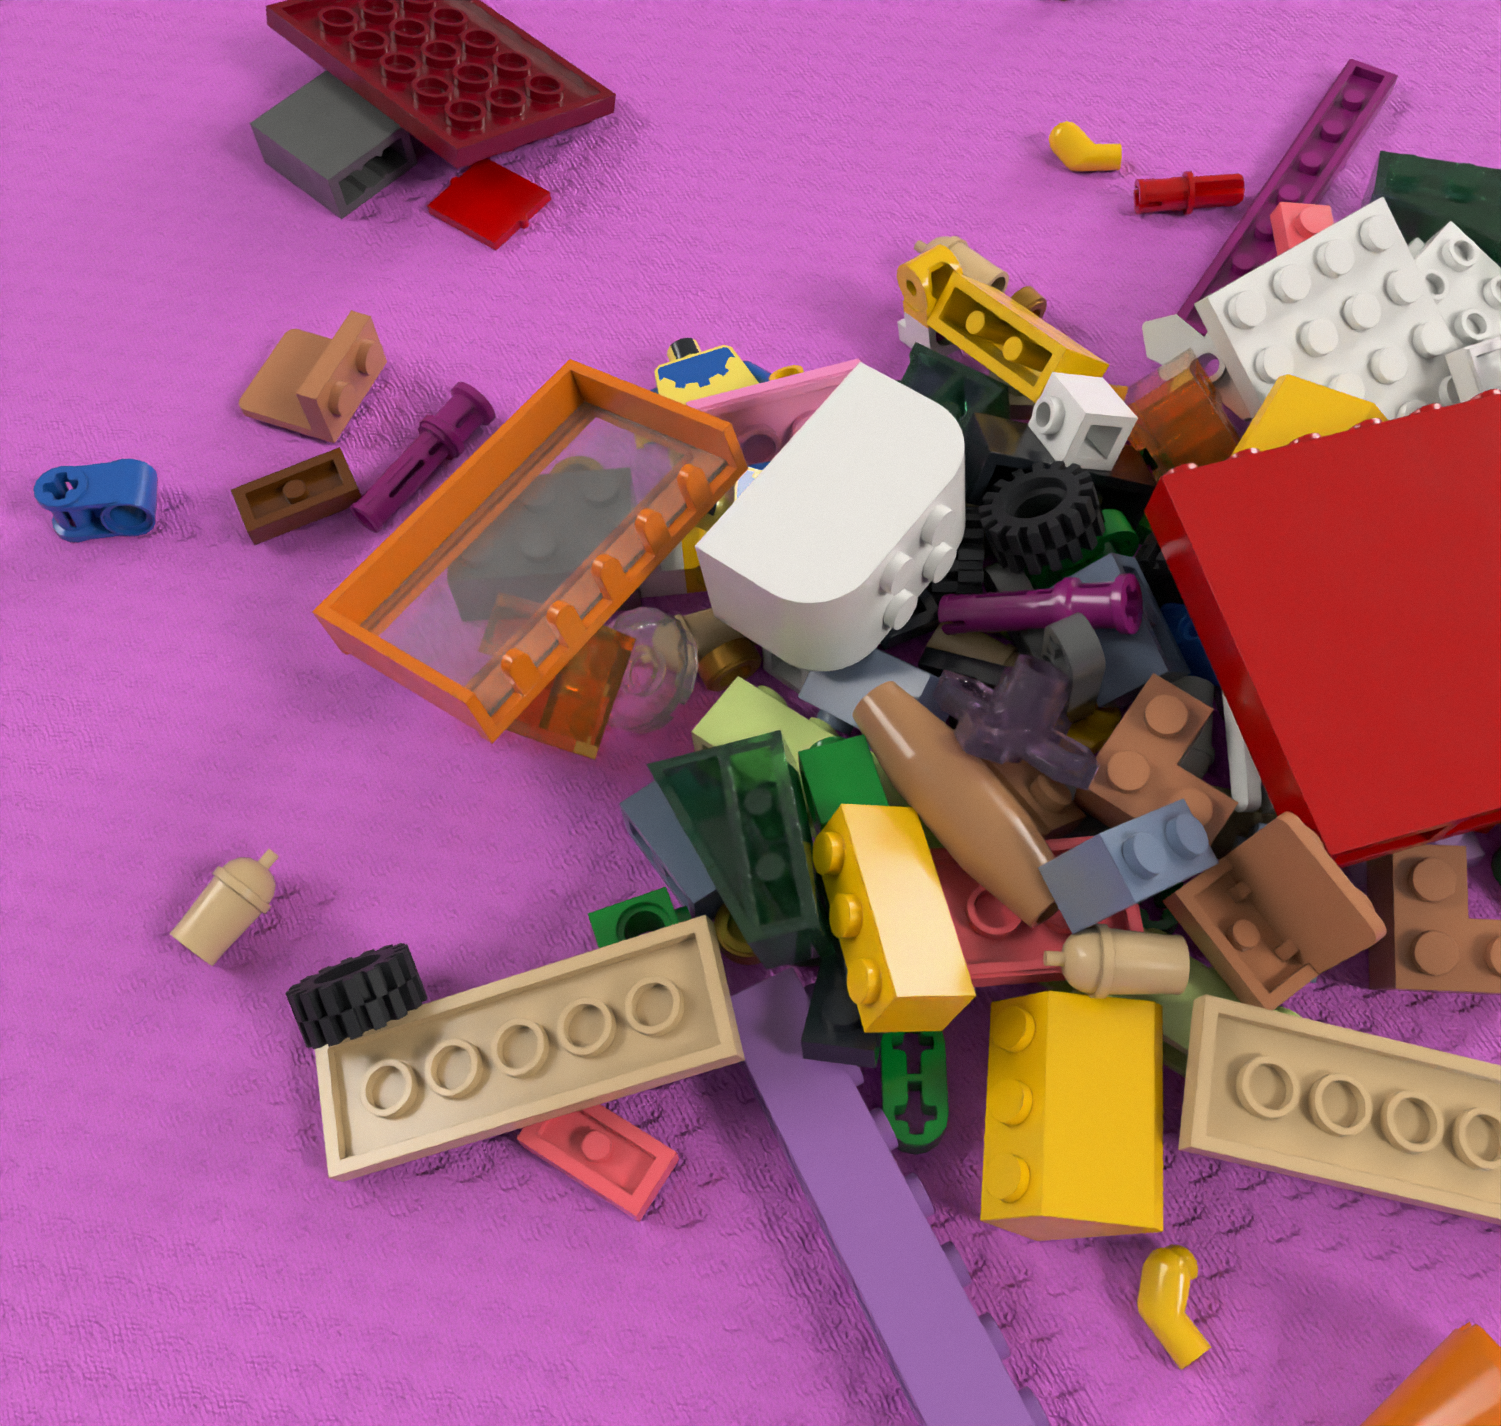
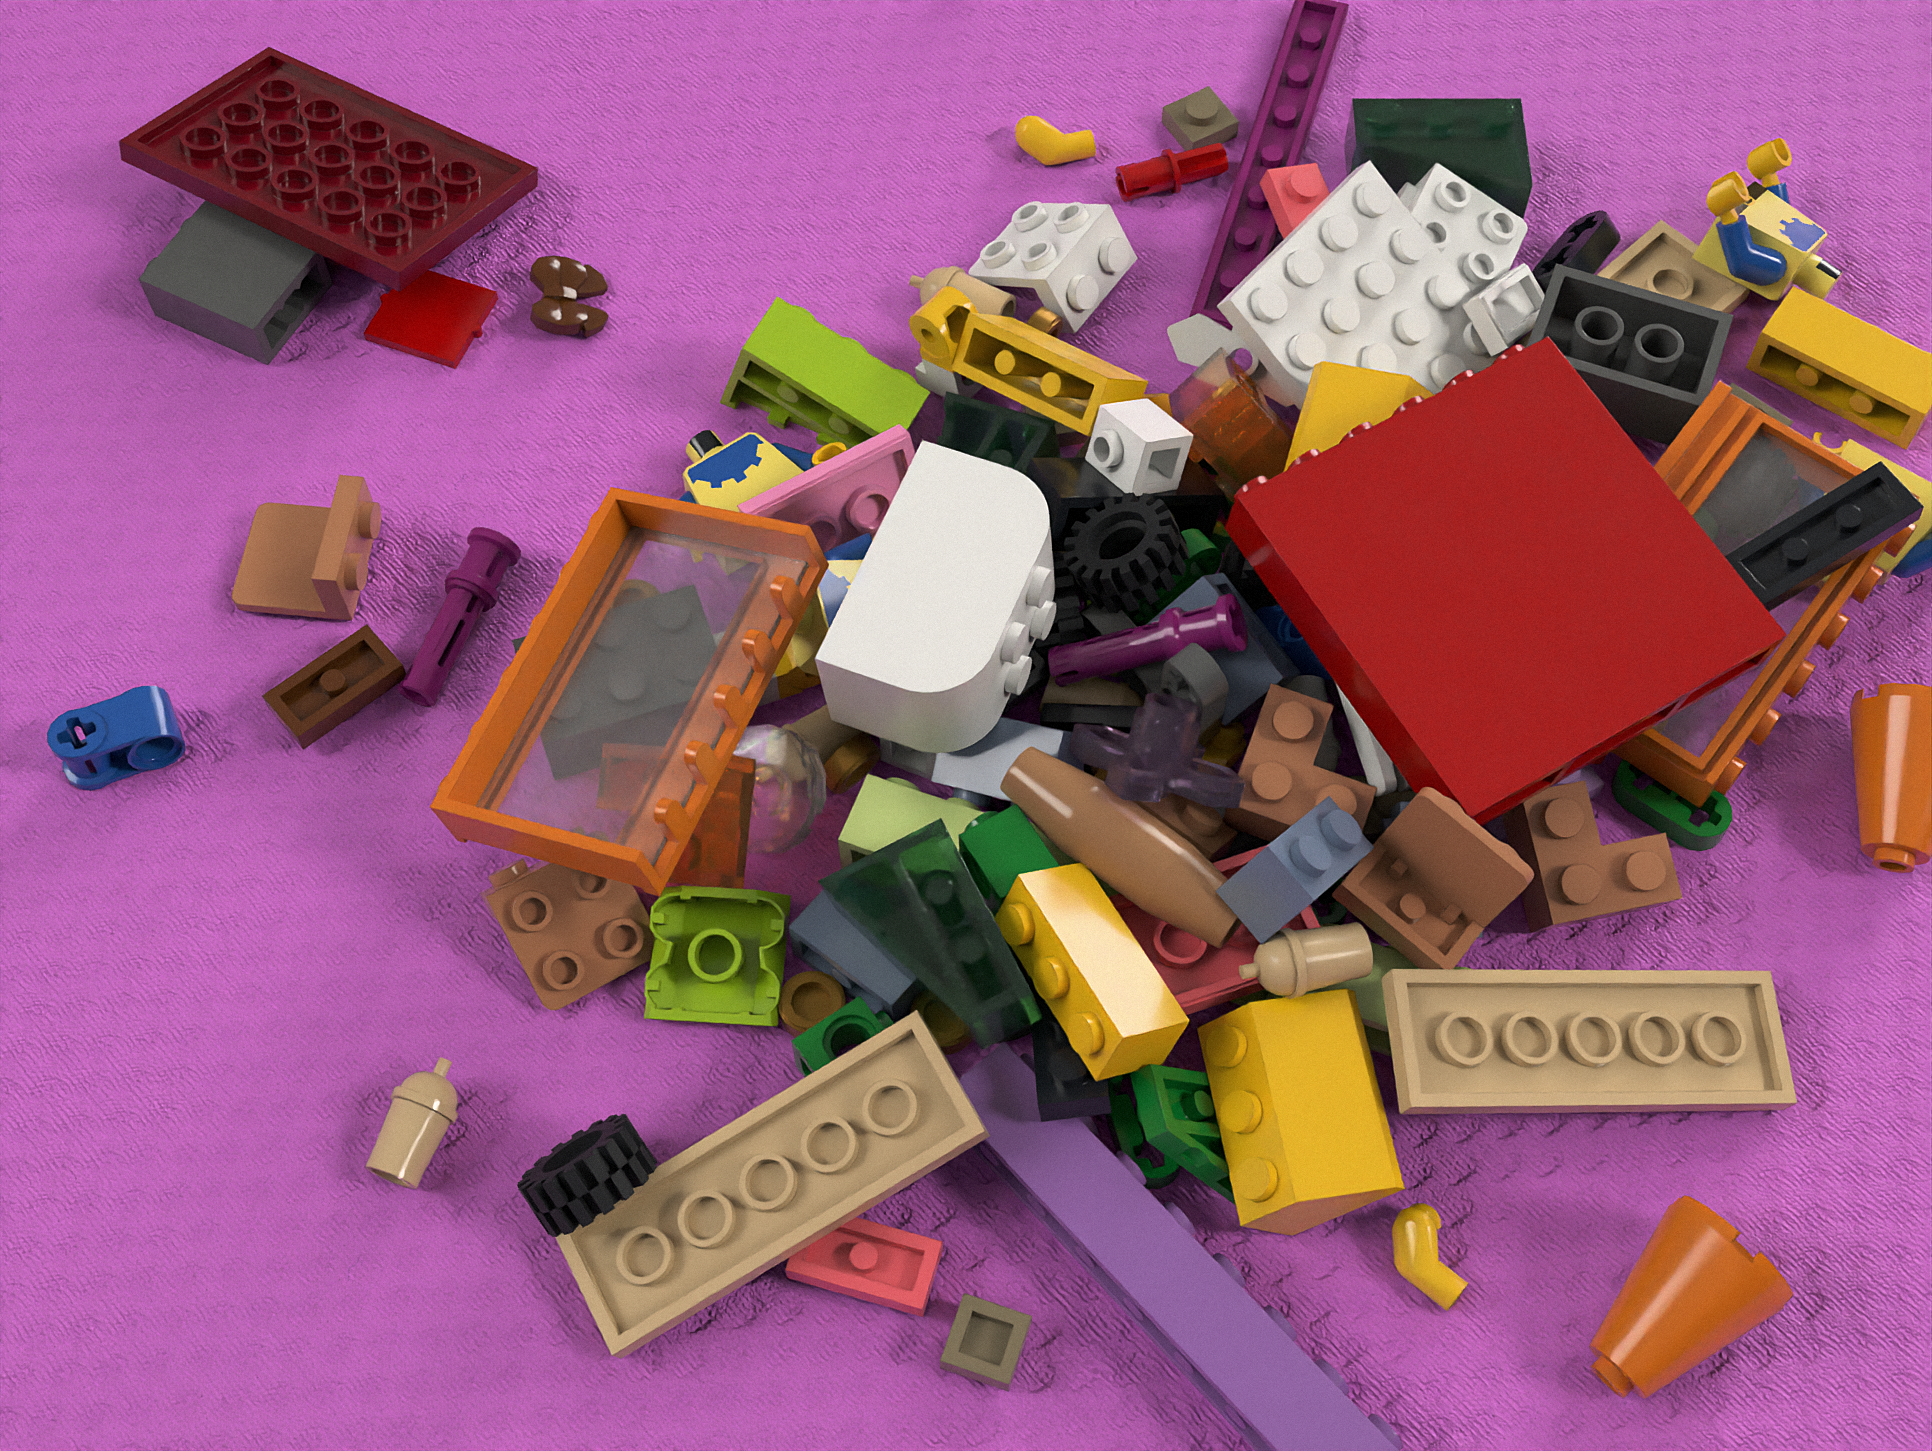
camera: 20 degrees left, 0 degrees up
(424, 760) = (568, 927): none -> nougat bracket
(551, 815) = (717, 955): none -> lime slope
(606, 193) = (561, 283): none -> reddish brown piece
(624, 877) = (808, 1000): none -> pearl gold tile
(691, 1267) = (986, 1342): none -> dark tan plate
(802, 309) = (820, 380): none -> lime wedge
(948, 1095) = (1182, 1122): none -> green wing
(1065, 247) = (1063, 252): none -> white bracket
(1227, 153) = (1200, 120): none -> dark tan plate

